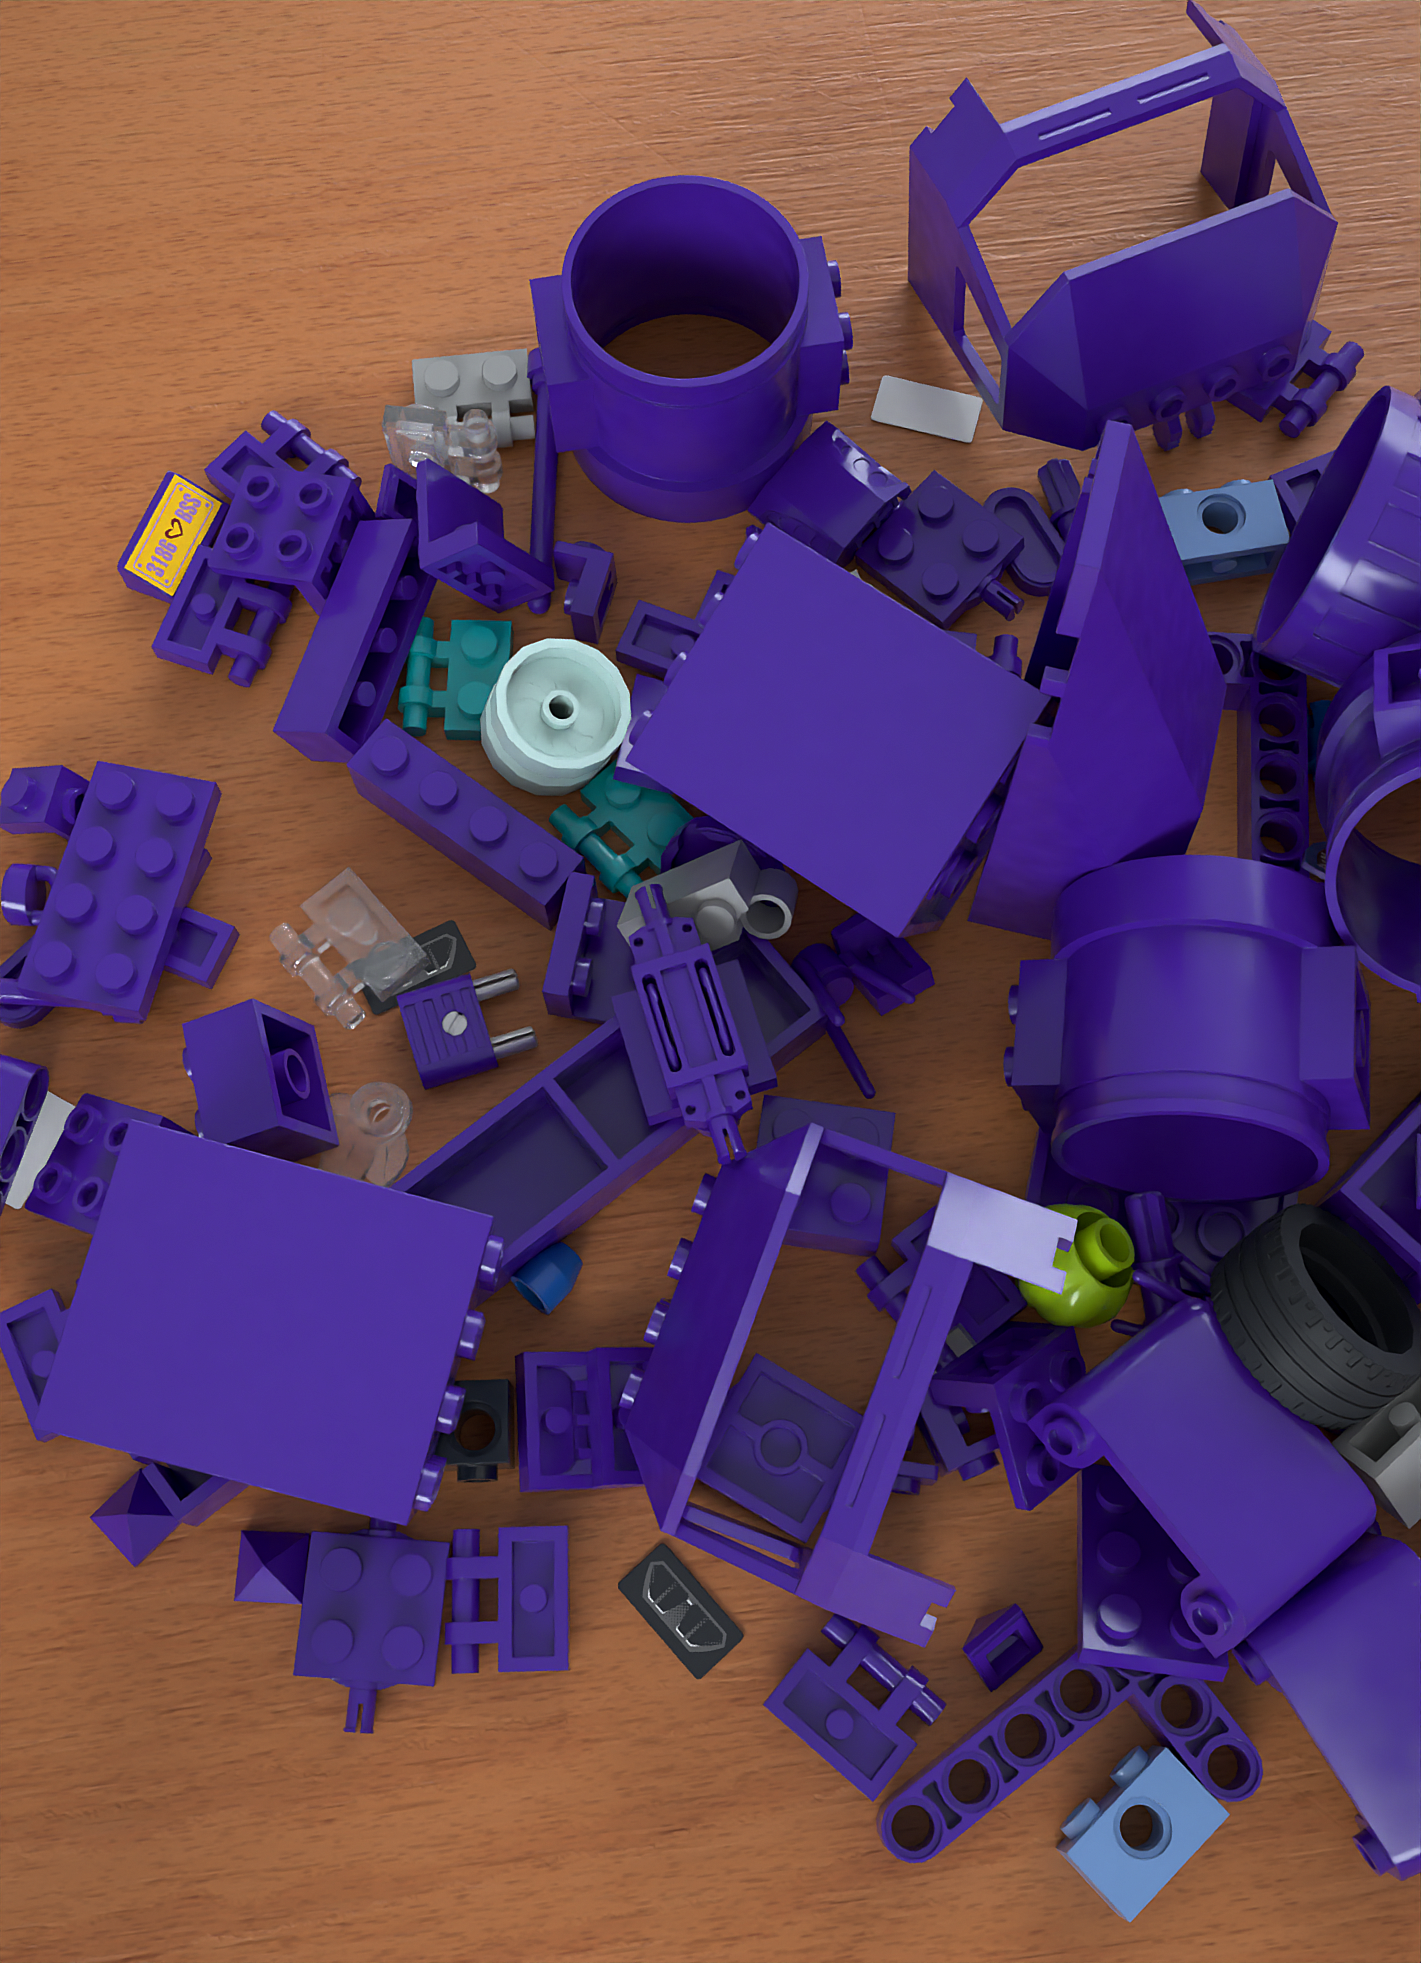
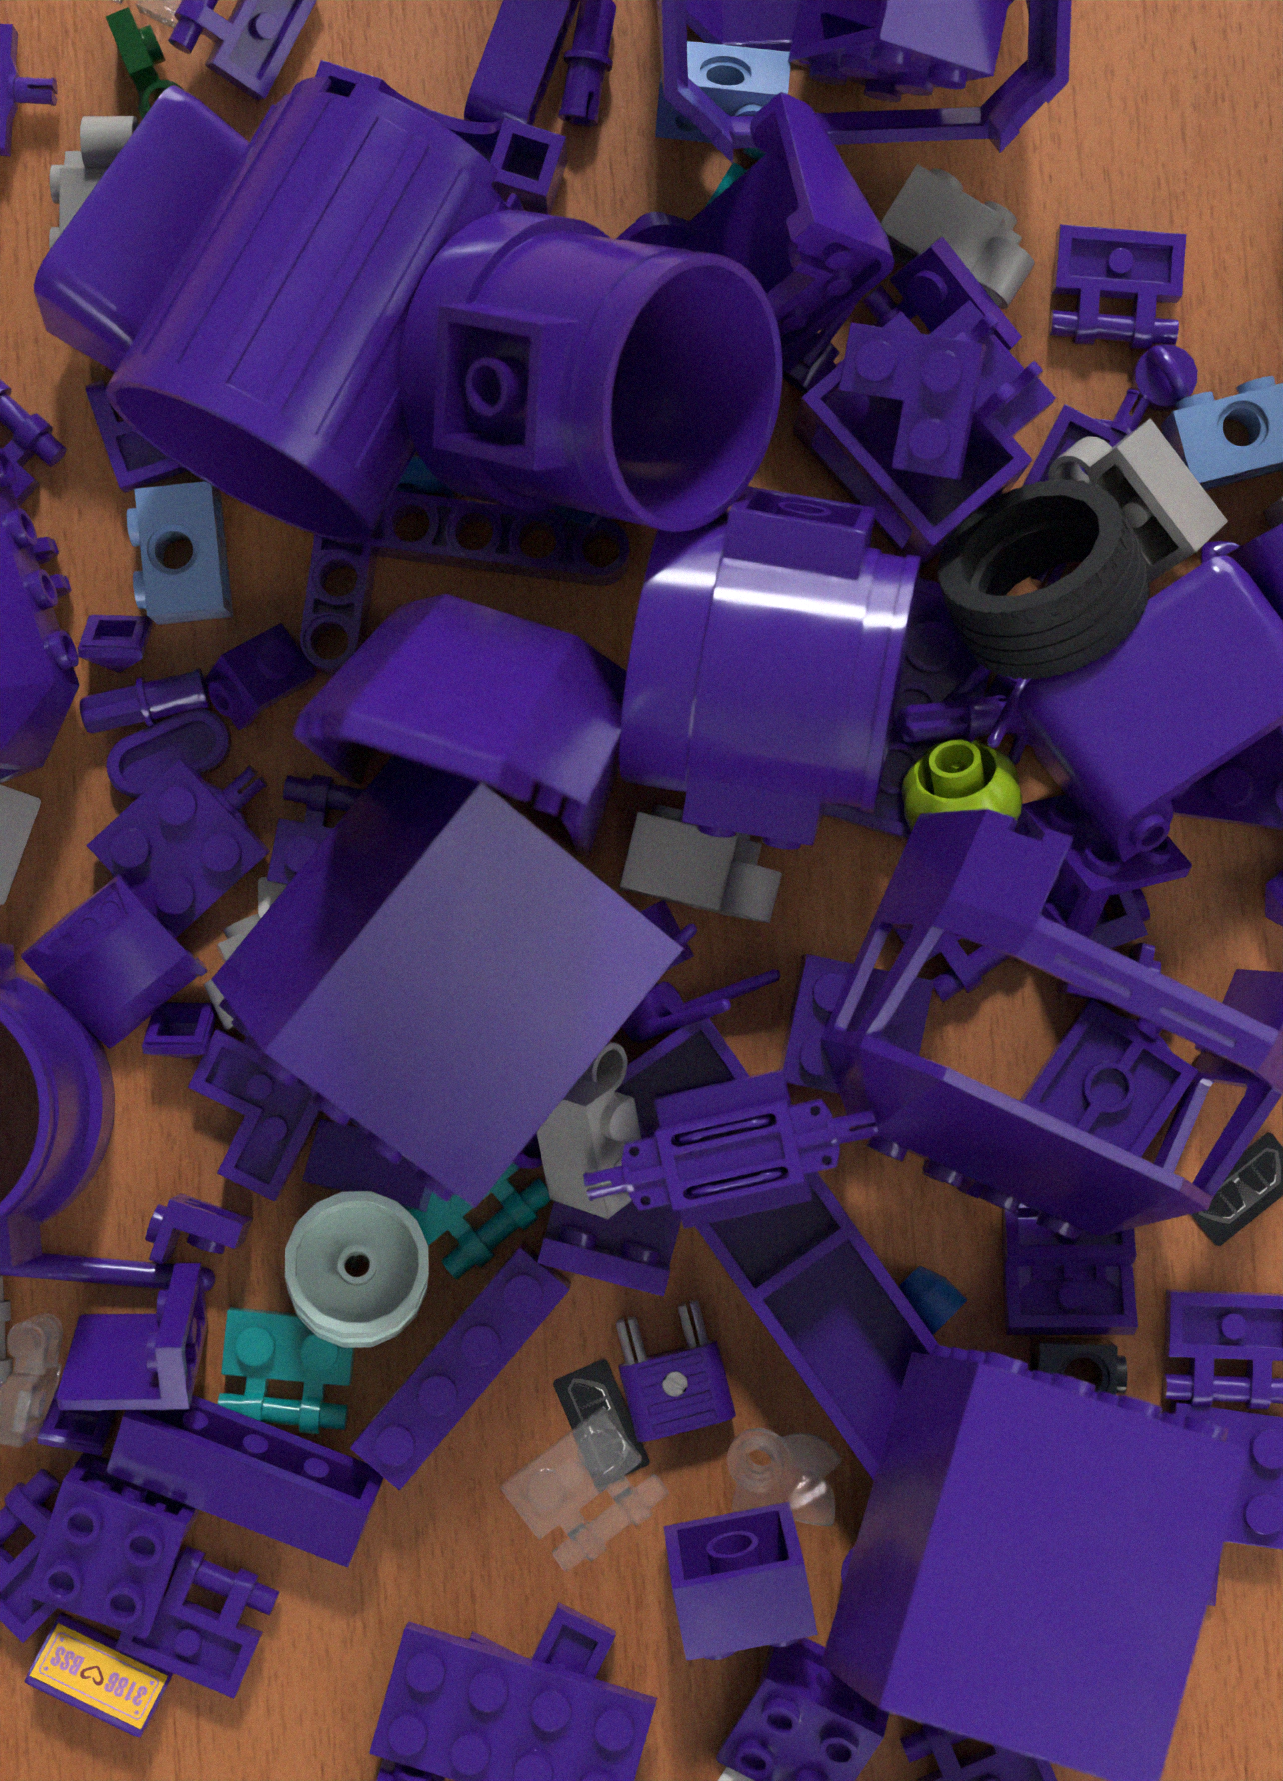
camera: 90 degrees left, 15 degrees up
(970, 1010) = (696, 869): none -> light grey hinge

